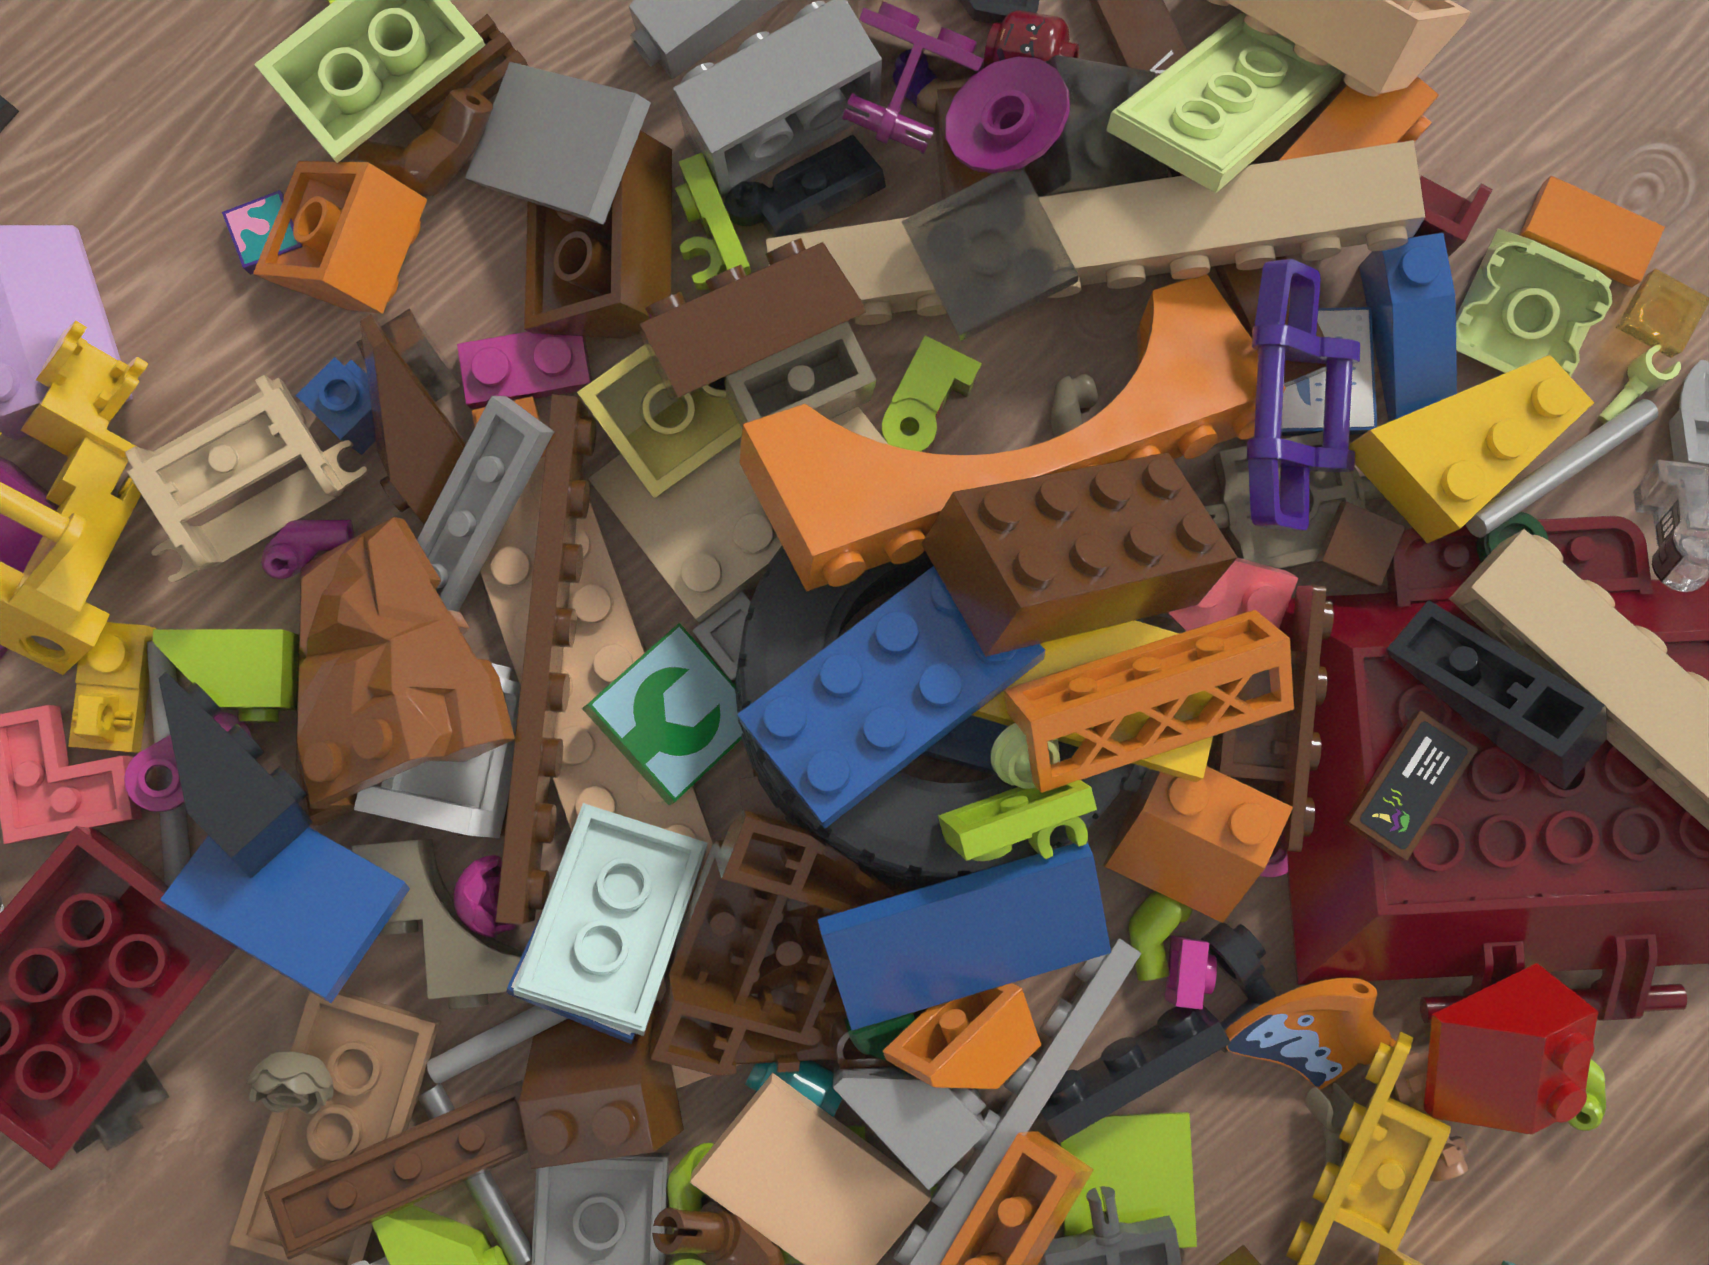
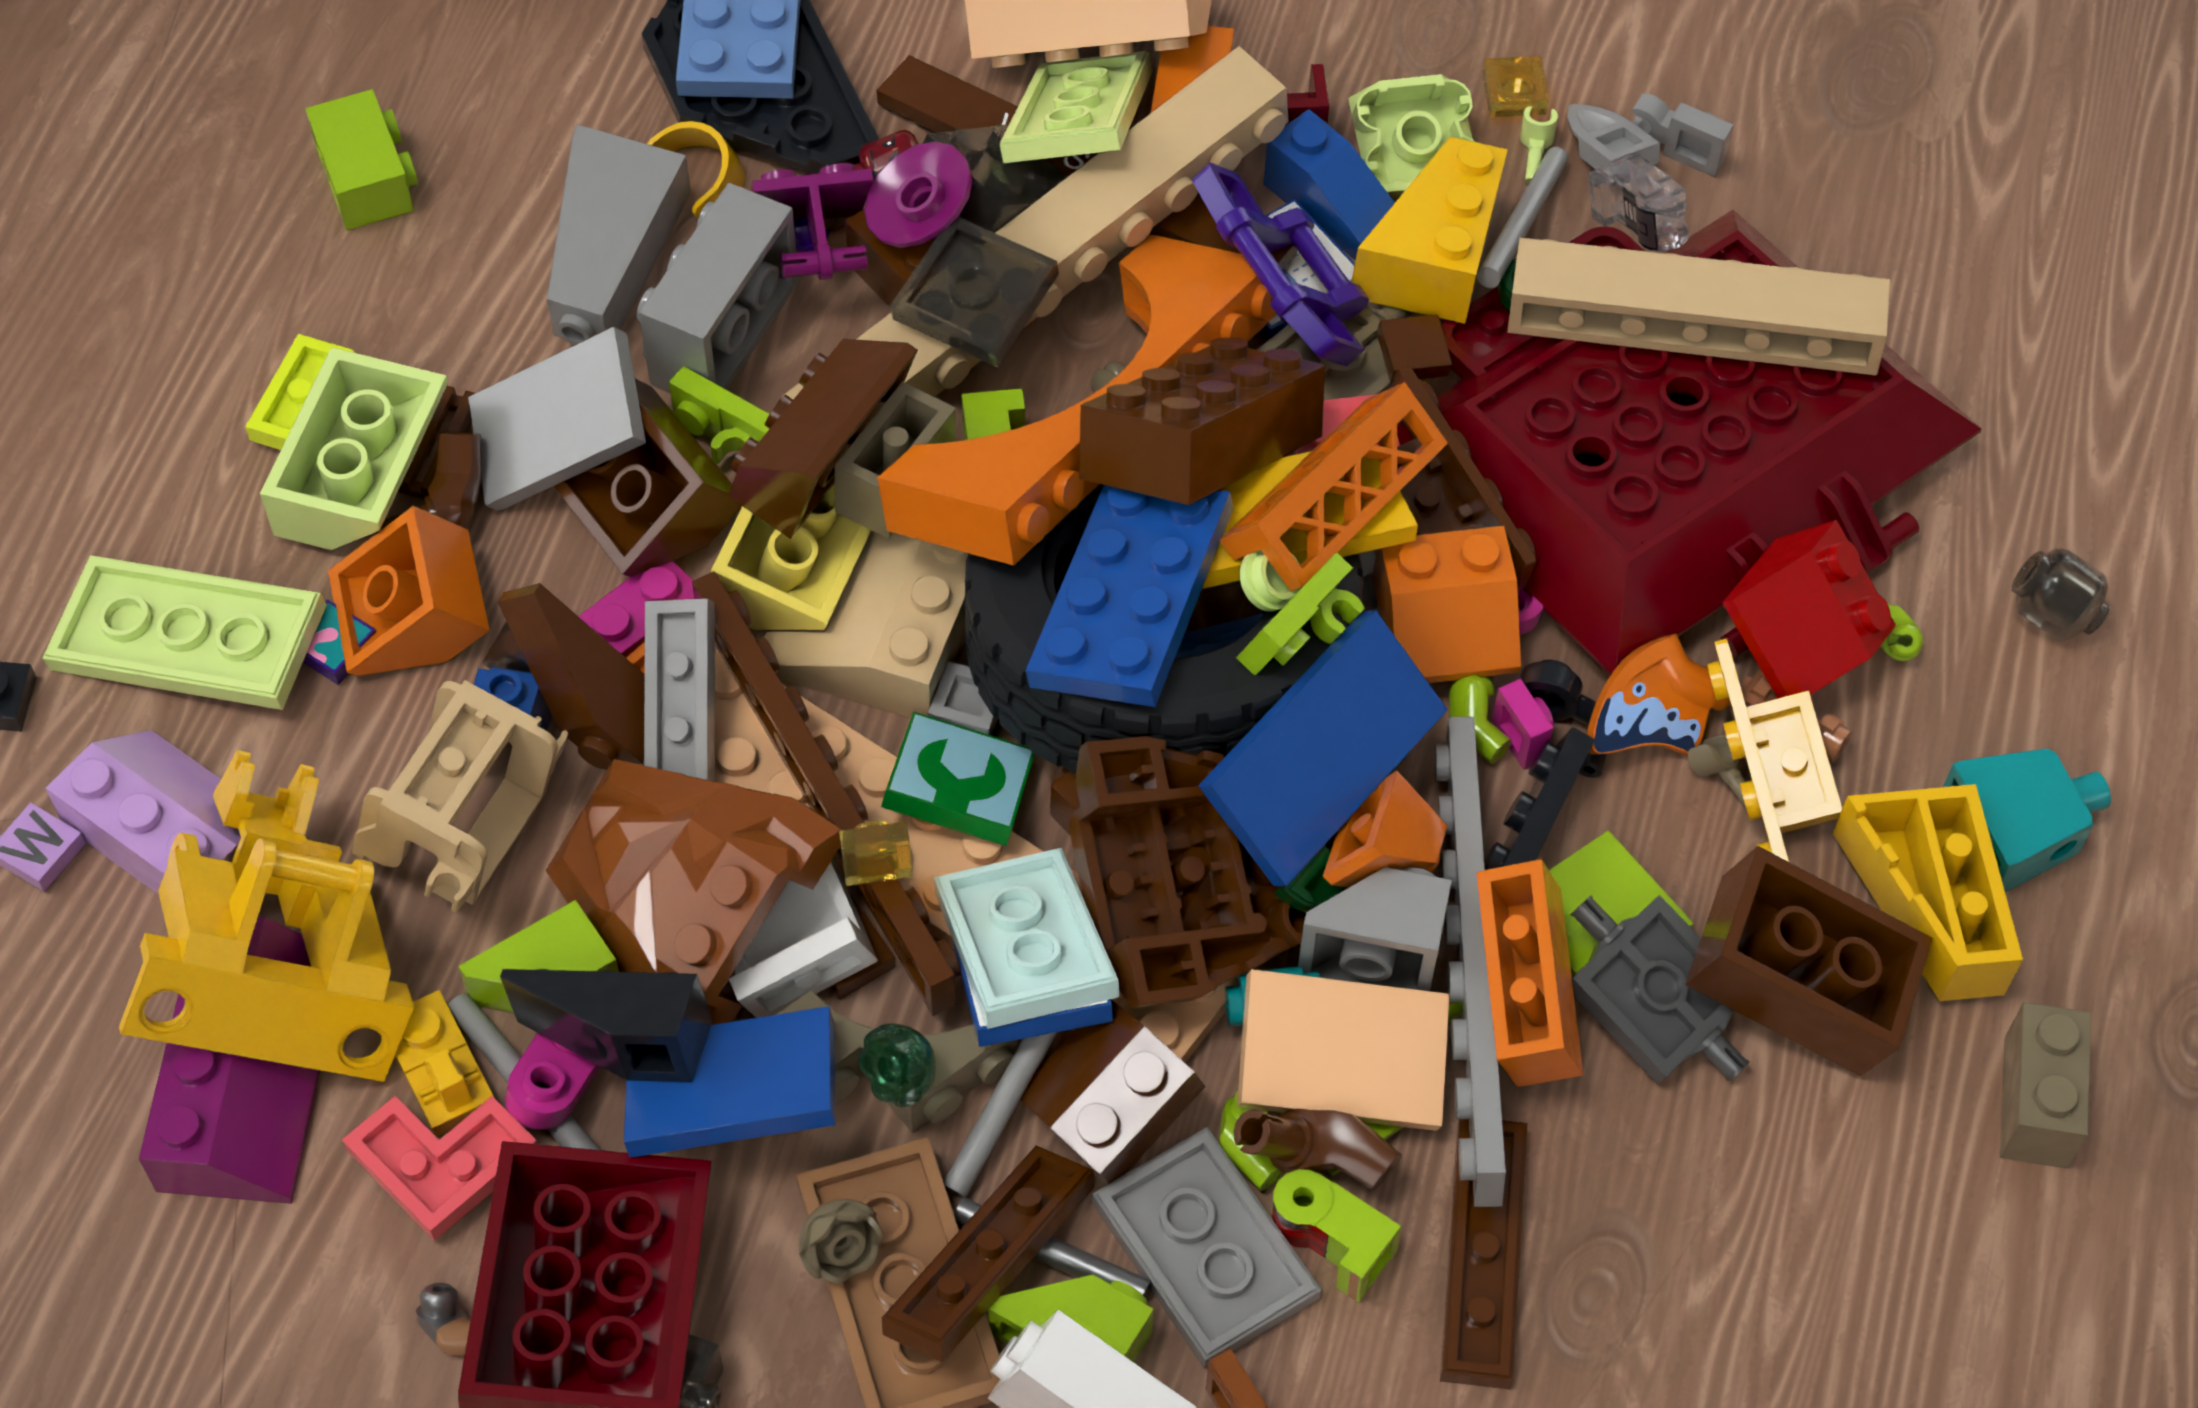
camera: 35 degrees left, 25 degrees down
(148, 149) = (185, 632): none -> yellowish green tile
(300, 542) = (534, 849): magenta arm -> none
(428, 972) = (898, 1064): none -> clear green plate
(477, 897) = (897, 1005): dark pink plate -> none
(519, 778) = (875, 852): none -> clear yellow plate
(808, 190) = (789, 349): black hinge -> none
(1410, 786) = (1579, 461): tile -> none
(1503, 694) = (1600, 356): black slope -> none
(1592, 231) = (1425, 56): orange tile -> none

